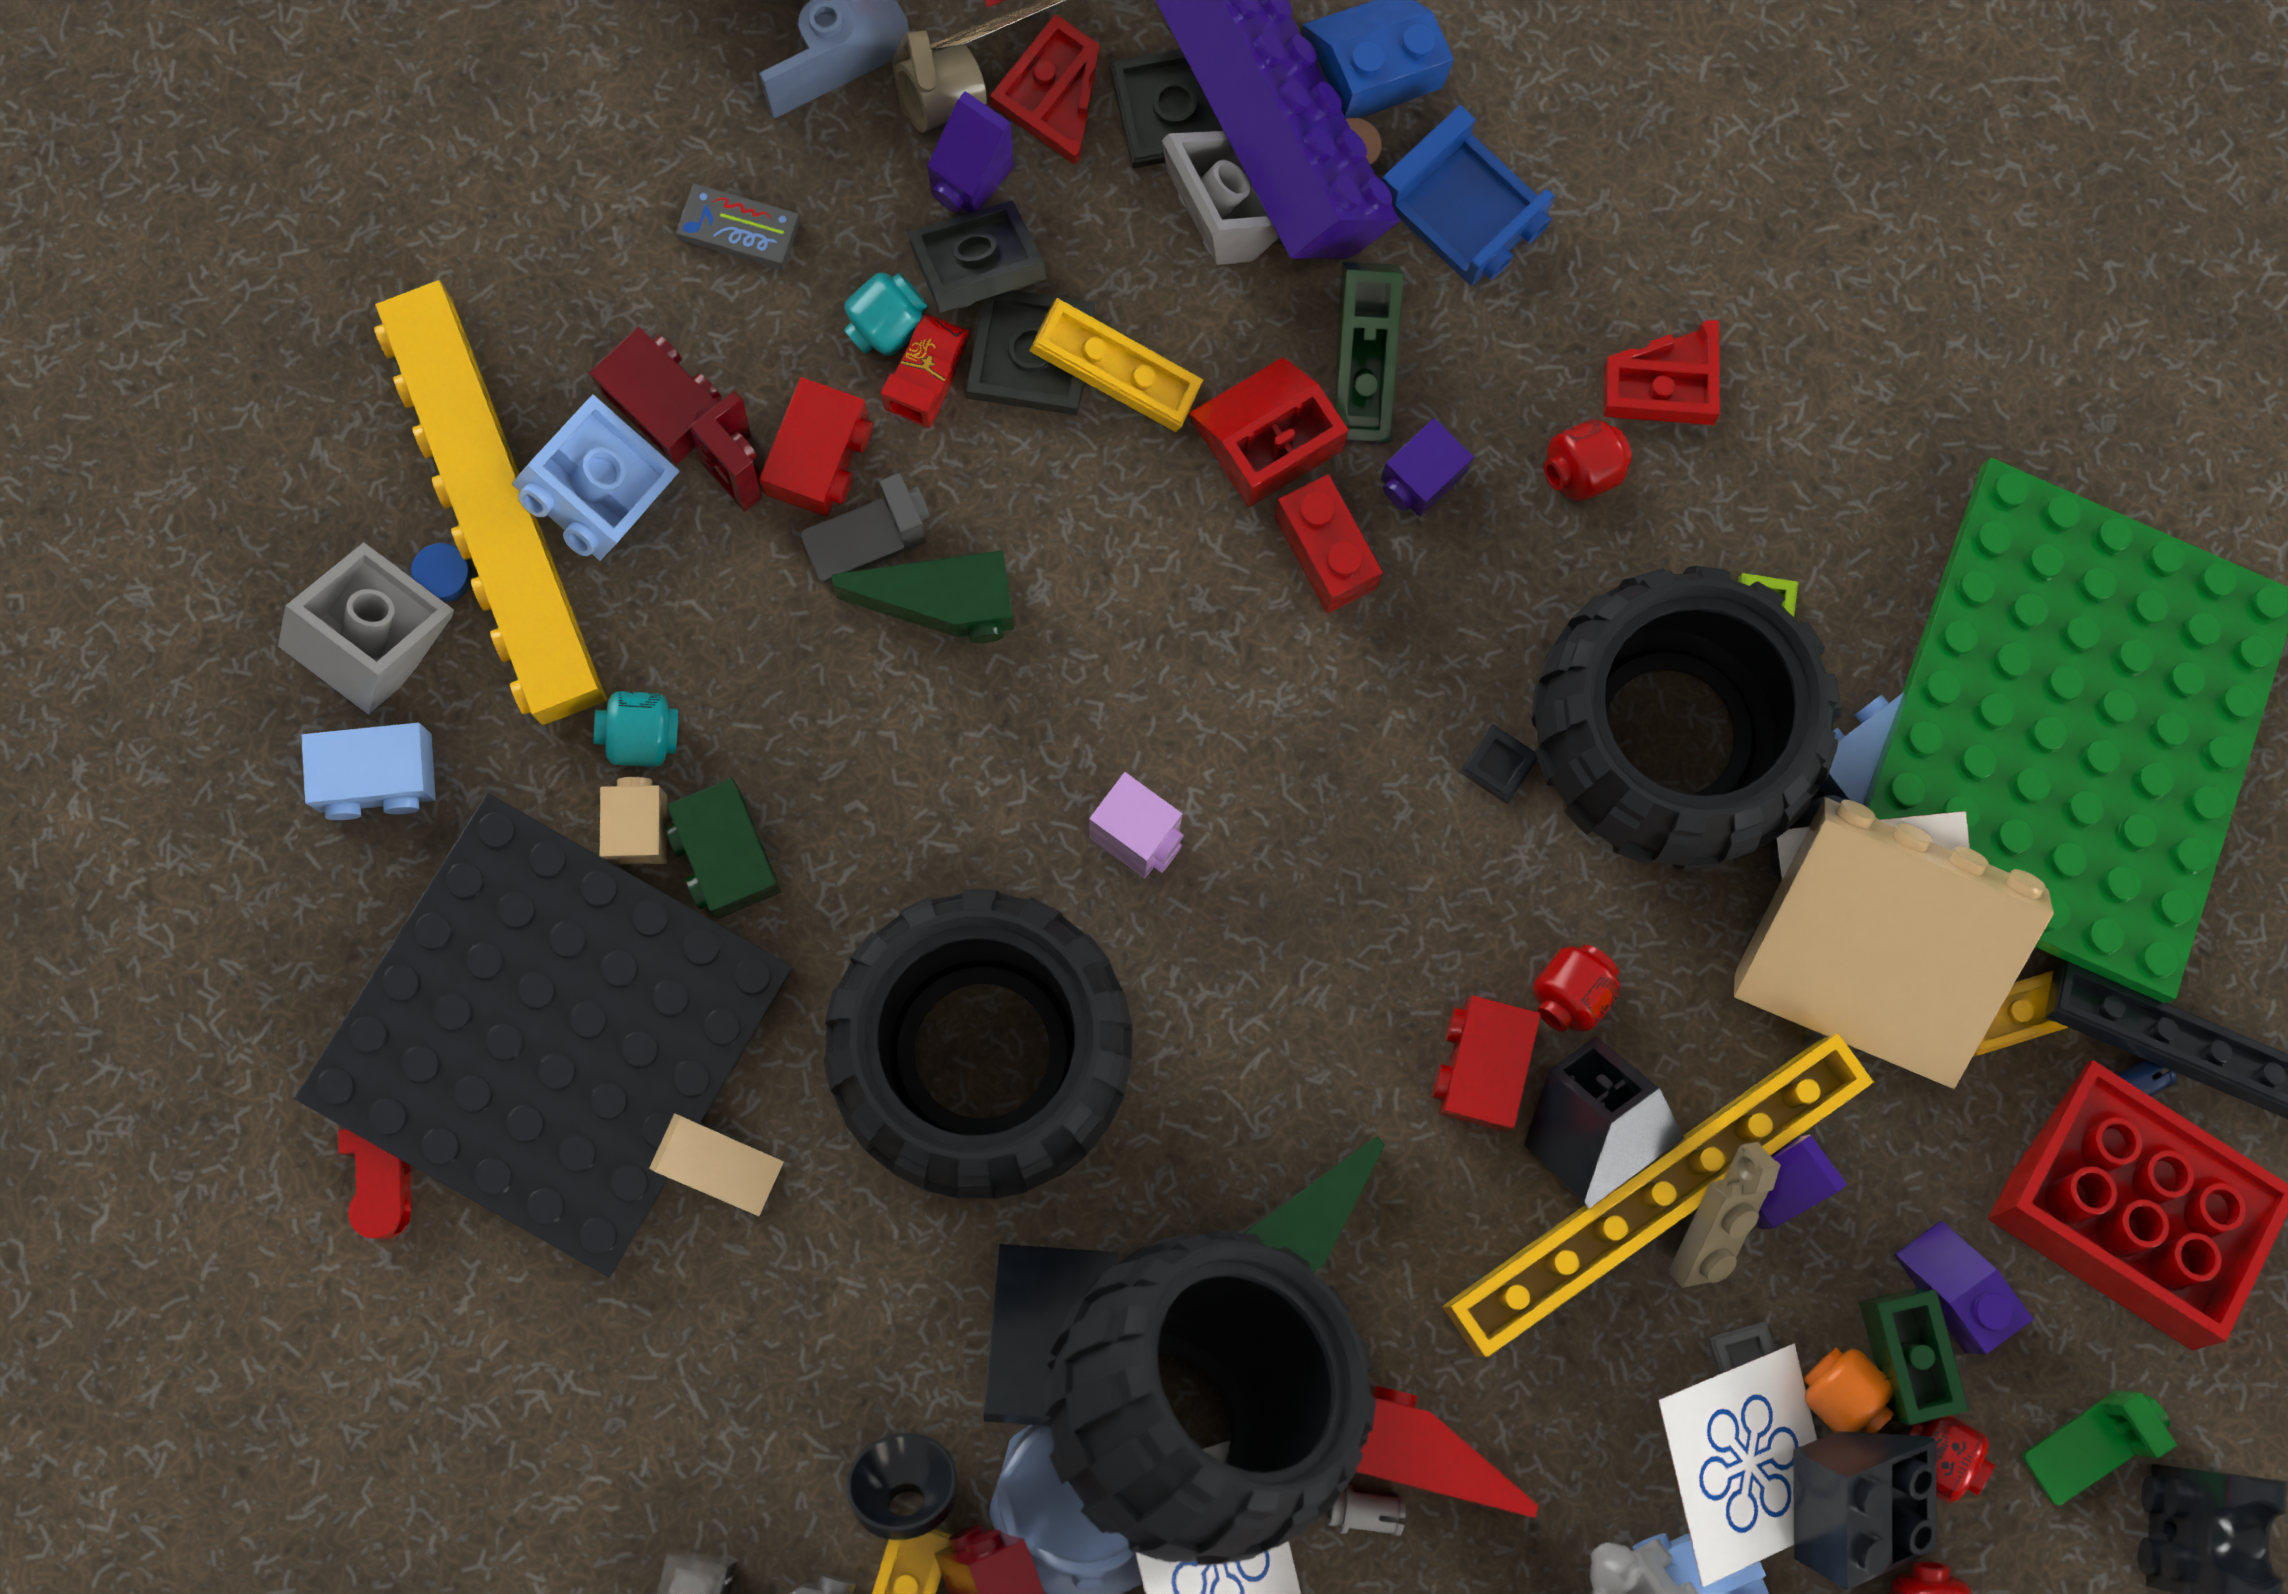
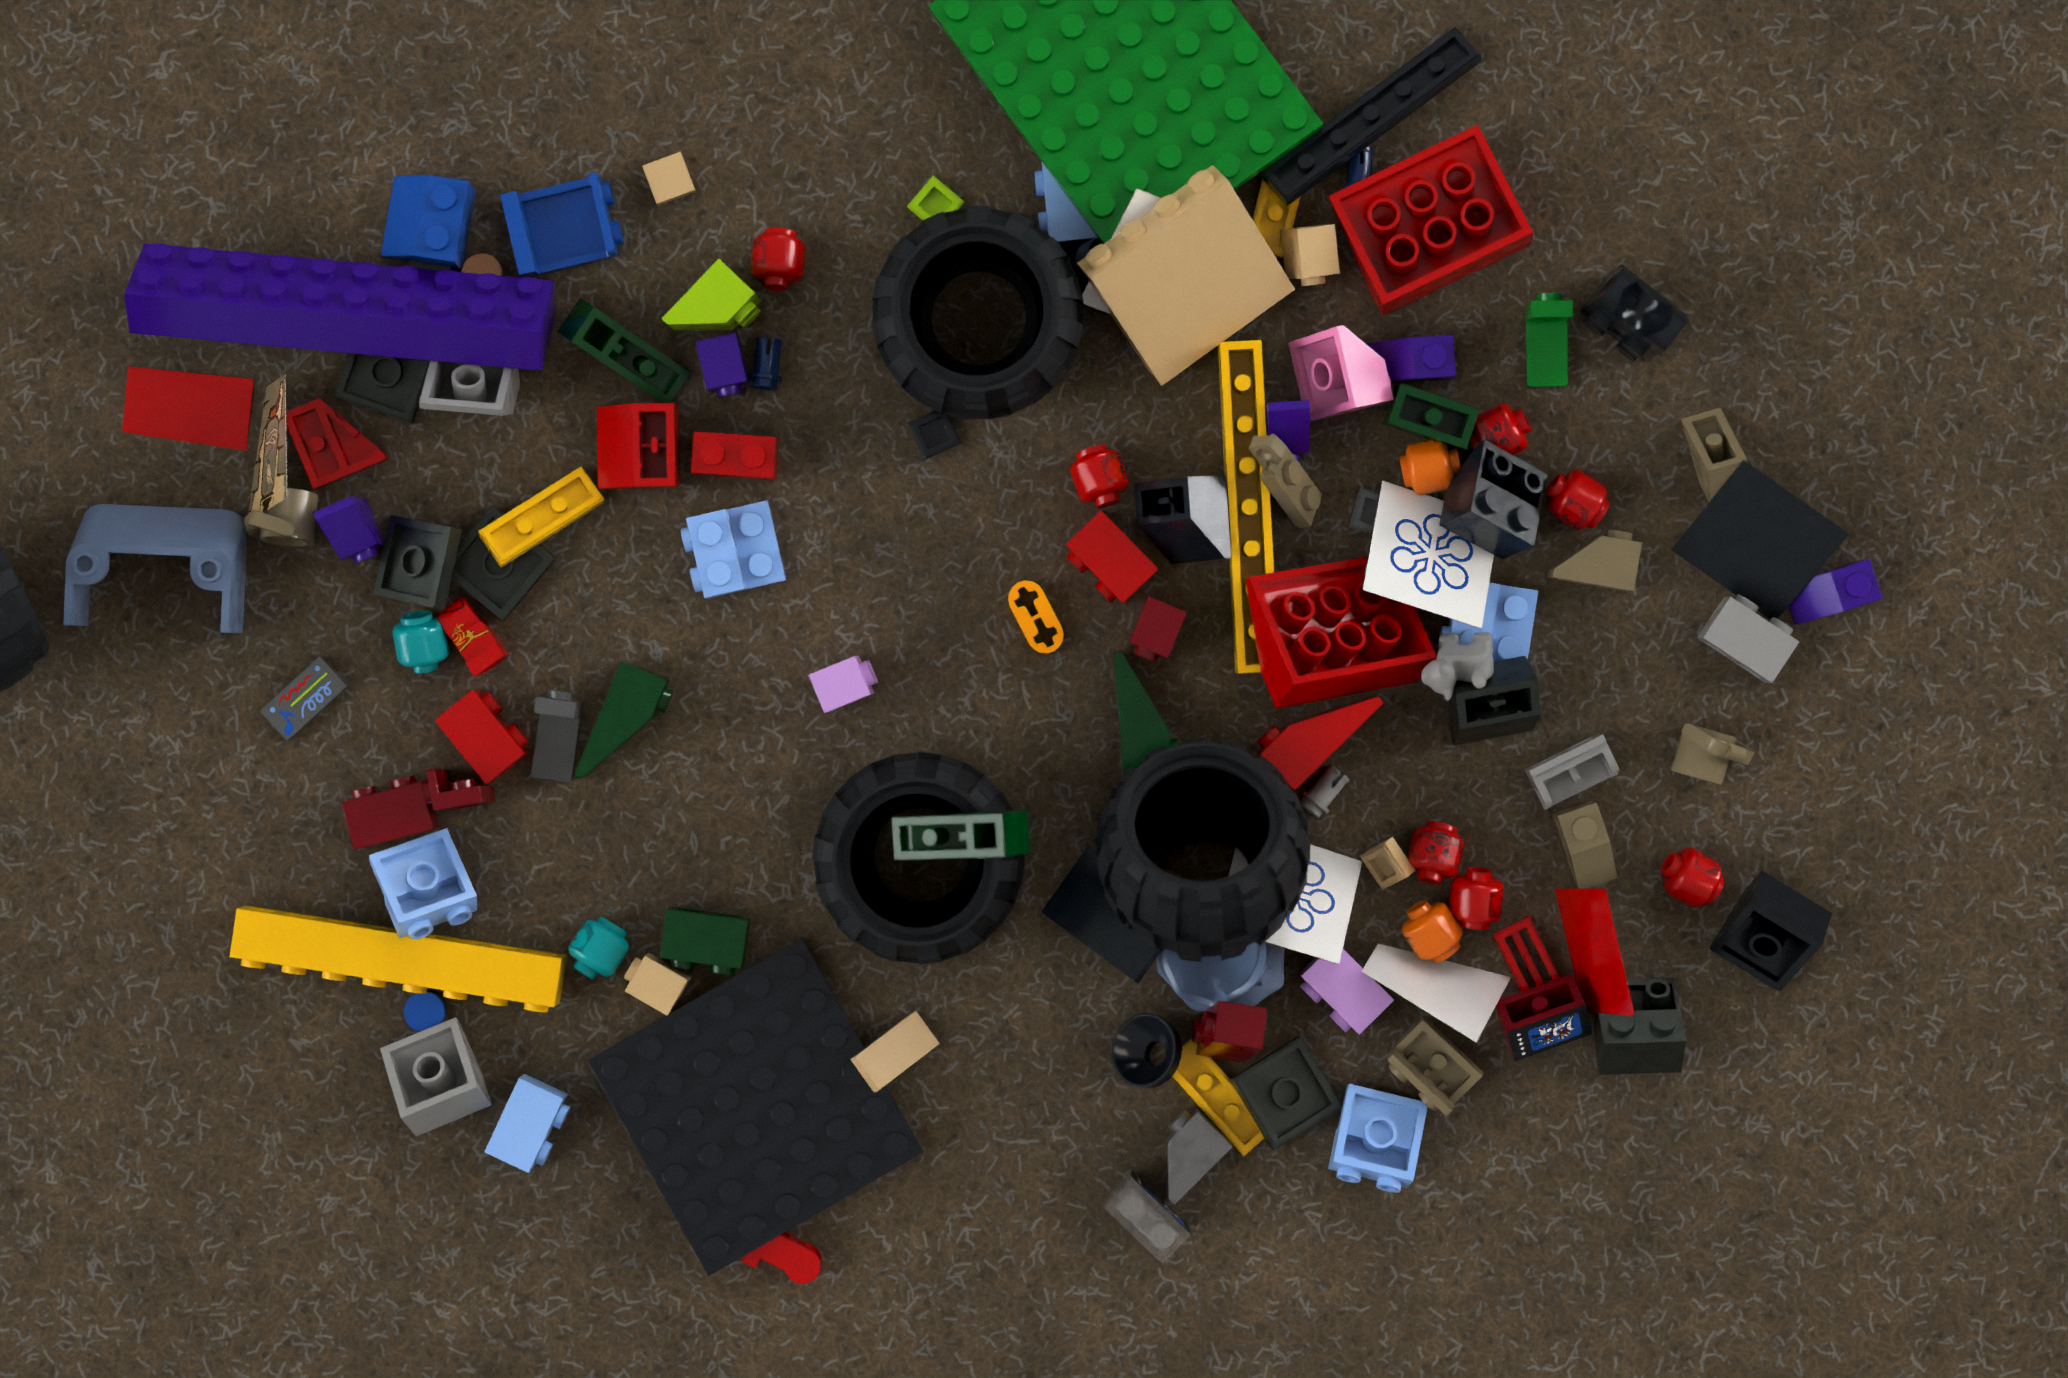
camera: 55 degrees left, 10 degrees up
(1045, 1068) = (961, 835): none -> dark green slope
(1214, 609) = (733, 549): none -> light blue plate
(1370, 1023) = (1027, 622): none -> light orange beam
(1440, 1170) = (1156, 629): none -> dark red brick
(1455, 521) = (766, 366): none -> dark blue pin
(1491, 410) = (714, 303): none -> lime slope
(1571, 1400) = (1330, 637): none -> red slope
(1596, 288) = (669, 178): none -> tan tile
(1666, 379) = (755, 173): red wing -> none
(1894, 1207) = (1339, 373): none -> bright pink slope
(2009, 1081) = (1310, 253): none -> tan brick

